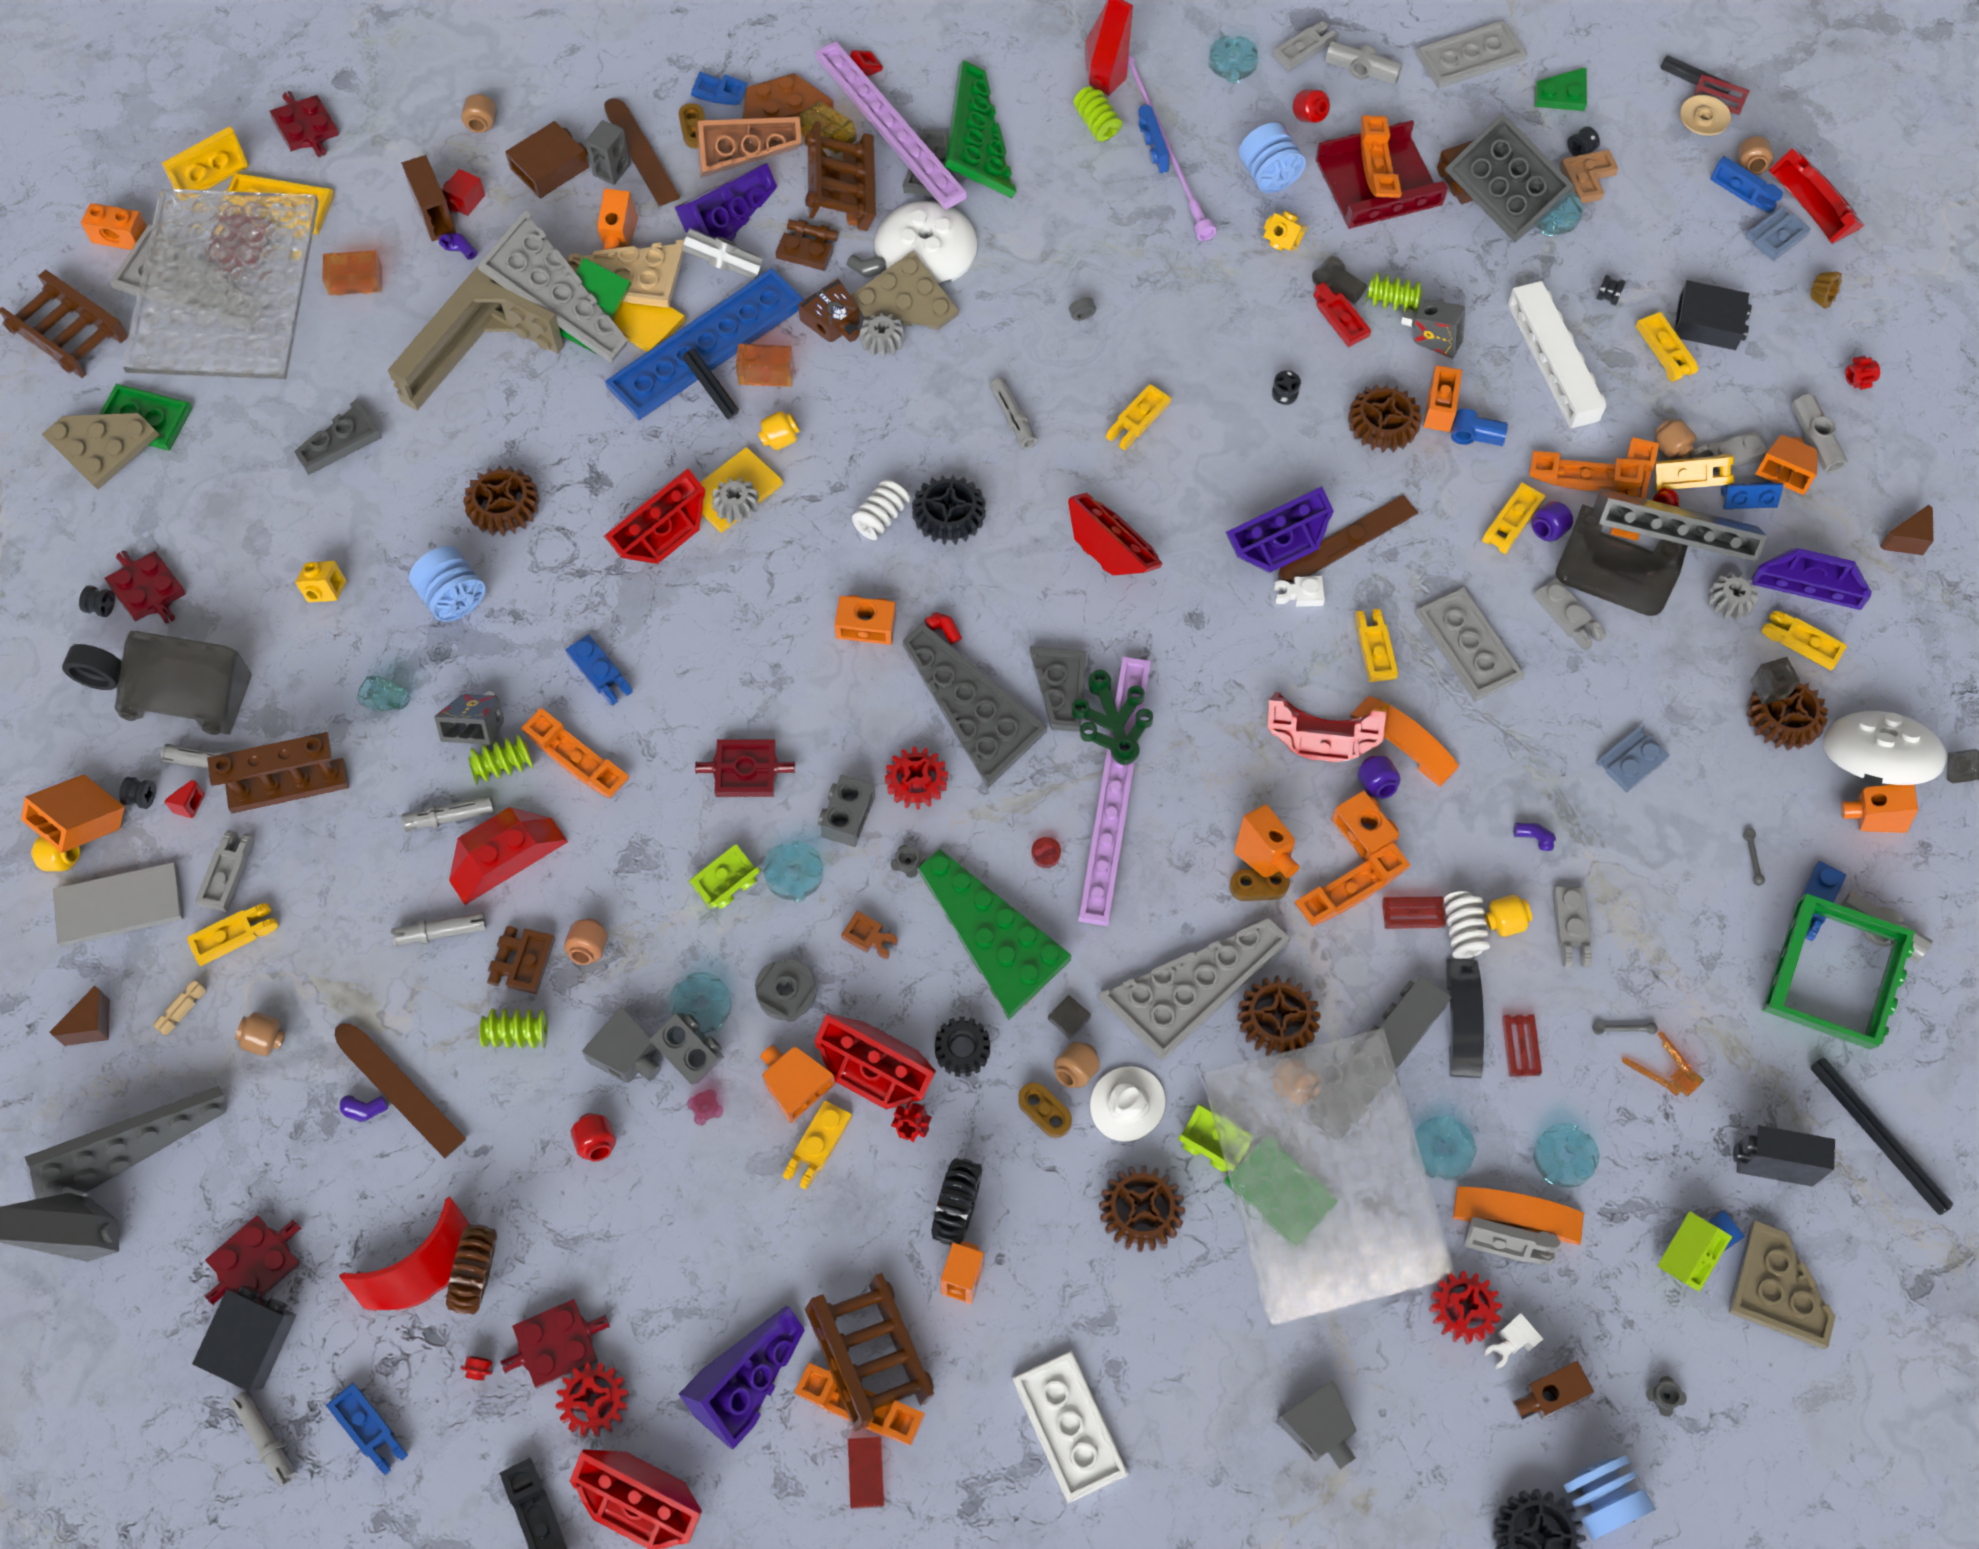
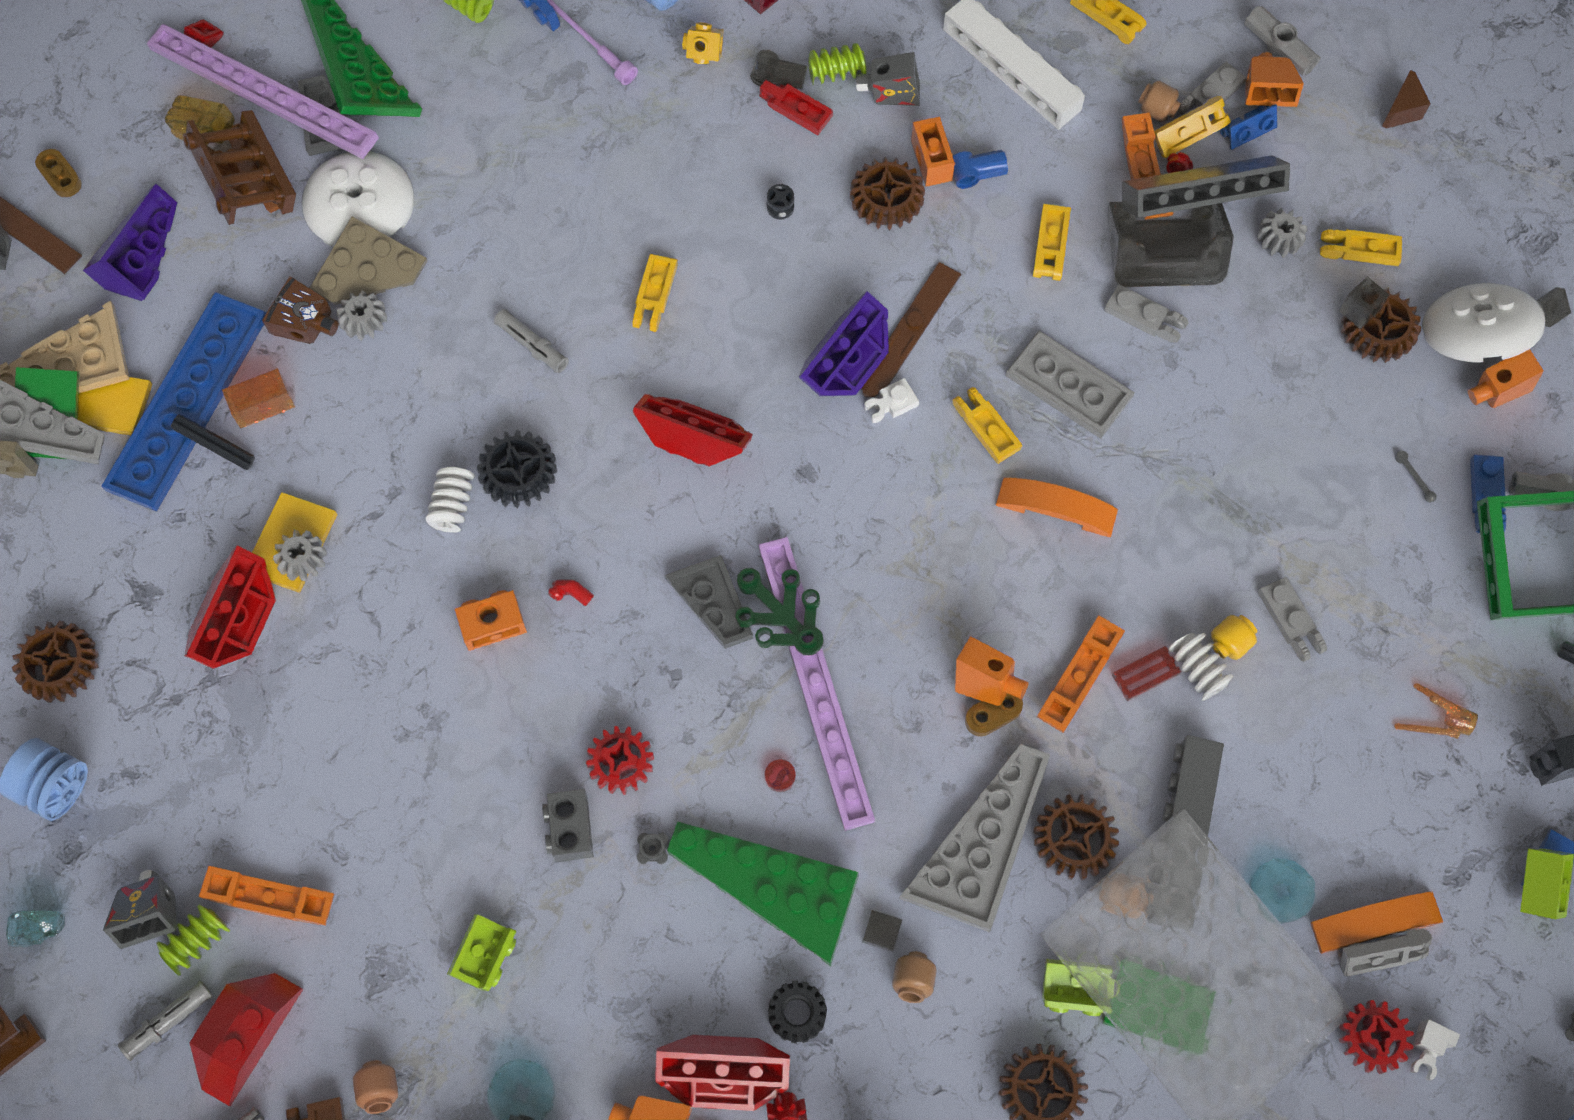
camera: 25 degrees left, 5 degrees up
(597, 668) = (243, 793): blue hinge -> none
(616, 219) = (28, 309): orange torso -> none
(722, 253) = (157, 299): light grey piece -> none
(724, 91) = (70, 123): blue slope -> none
(743, 141) = (115, 173): nougat wedge -> none
(745, 767) = (446, 829): dark red plate -> none
(778, 430) = (306, 461): yellow head -> none
(781, 973) = (586, 1024): dark grey plate -> none
(782, 98) = (135, 112): dark orange wing -> none
(789, 855) = (534, 898): clear light blue plate -> none
(804, 250) = (240, 258): reddish brown plate -> none
(866, 933) = (647, 943): dark orange plate -> none
(867, 267) = (311, 250): dark grey arm -> none
(982, 715) = (650, 664): dark grey wing -> none
(1046, 1110) = (906, 1034): pearl gold plate -> none
(1082, 309) = (547, 204): dark grey tile -> none
(1127, 1103) = (978, 990): white hat -> none
(1325, 738) = (984, 538): windscreen -> none
(1360, 810) = (1070, 625): orange brick -> none
(1379, 777) = (1053, 555): dark purple head -> none
(1466, 1018) = (1242, 753): black slope -> none
(1520, 1020) = (1311, 749): clear red tile -> none
(1537, 831) = (1218, 541): dark purple arm -> none
(1552, 521) = (1088, 230): dark purple head -> none
(1557, 1171) = (1386, 862): clear light blue plate -> none
(1567, 1385) = (1504, 1071): reddish brown torso -> none
(1586, 475) = (1096, 170): orange slope -> none
(1599, 1028) = (1361, 705): dark grey hinge -> none
(1633, 759) = (1268, 431): sand blue plate -> none
(1815, 577) = (1345, 183): dark purple wedge -> none

